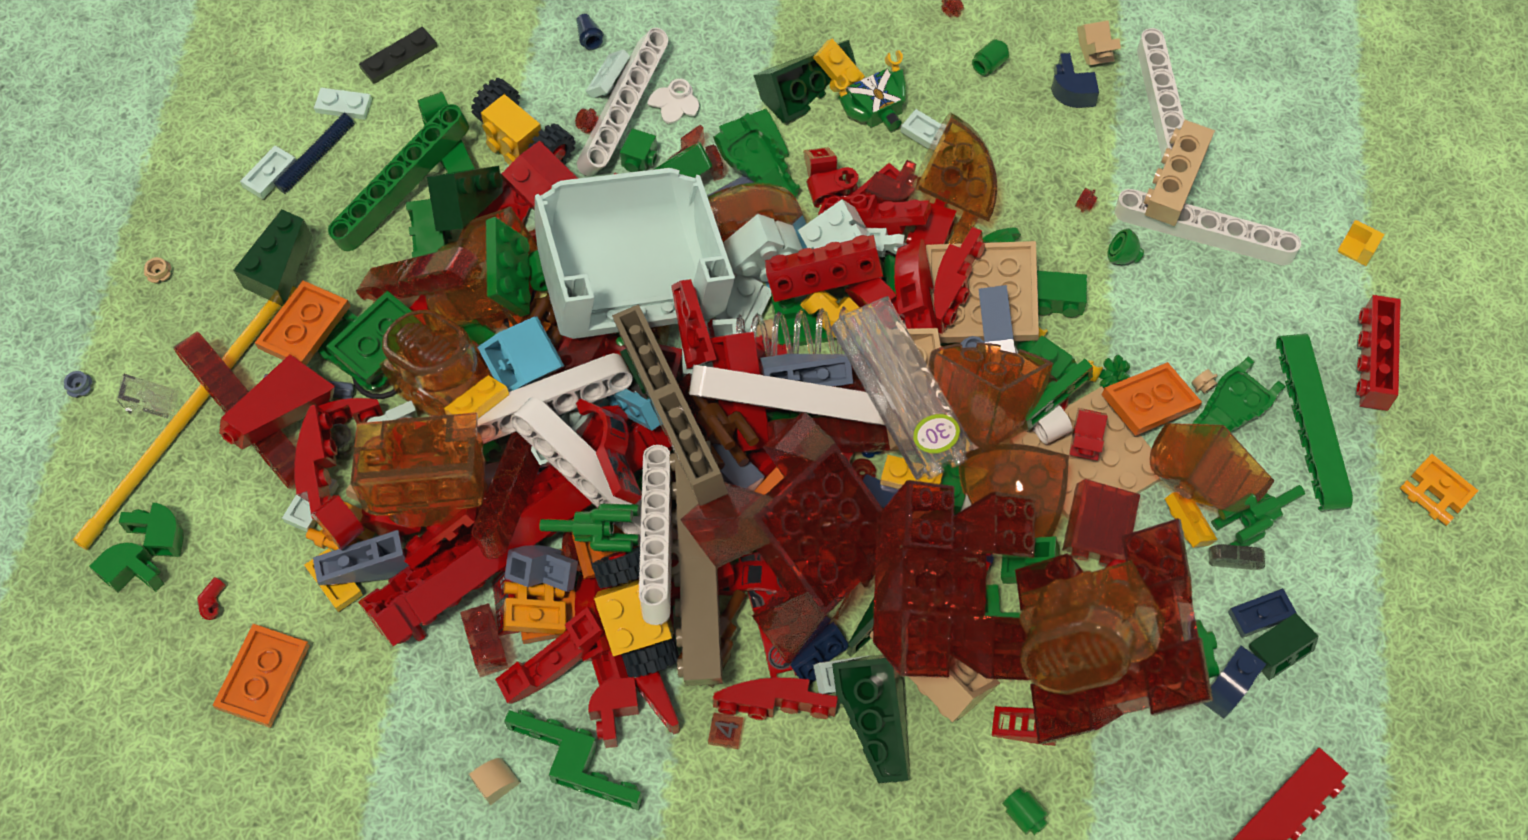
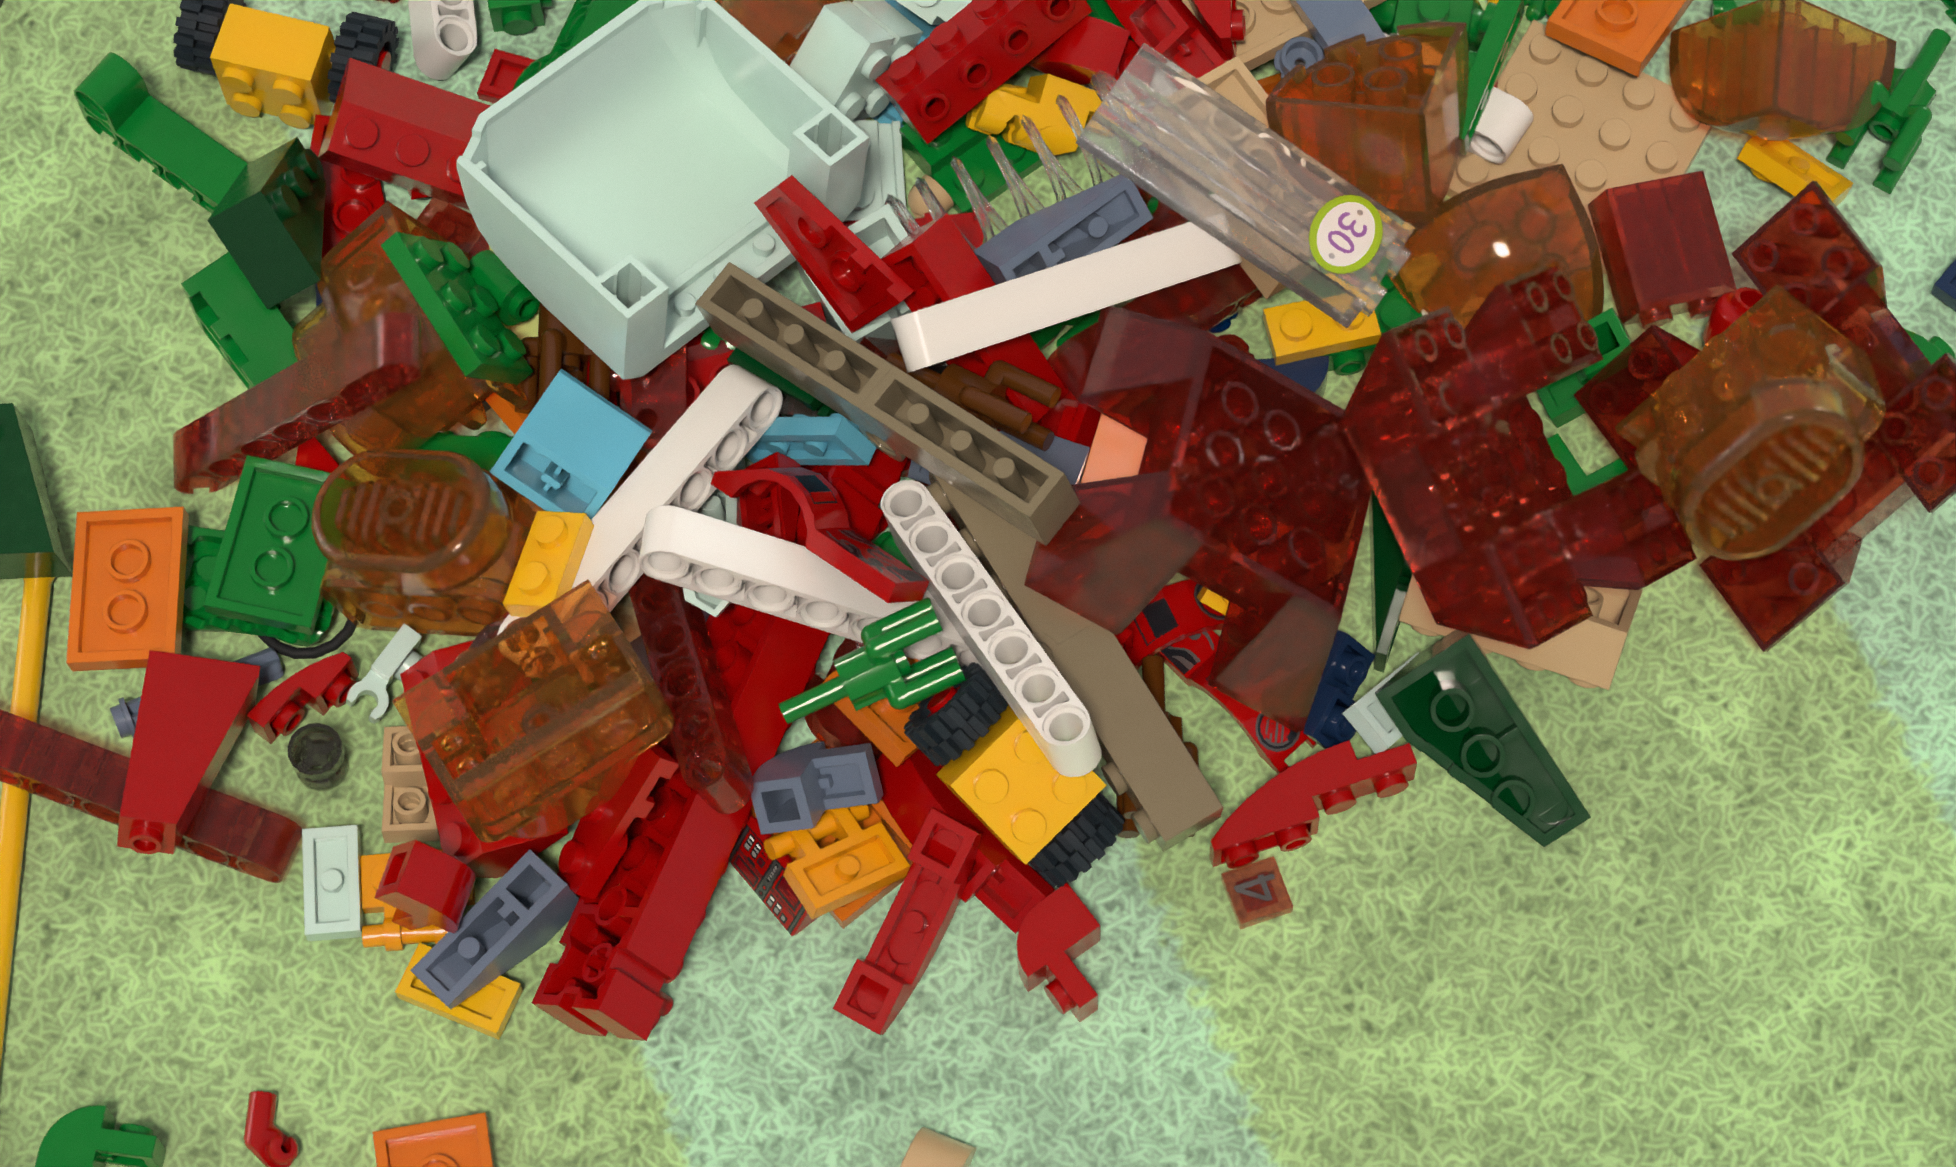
camera: 25 degrees left, 5 degrees up
(161, 529) = (105, 1056): green brick -> none
(313, 456) = (303, 801): red slope -> none
(398, 178) = (134, 268): green beam -> none
(484, 640) = (780, 954): clear red brick -> none
(574, 759) = (1044, 1064): green bracket -> none
(655, 694) = (1121, 898): red slope -> none
(1012, 734) = (1725, 652): red slope -> none
(1026, 811) = (1798, 769): green brick -> none
(1088, 434) = (1564, 111): red brick -> none
(1237, 557) = (1899, 196): clear smoke beam -> none

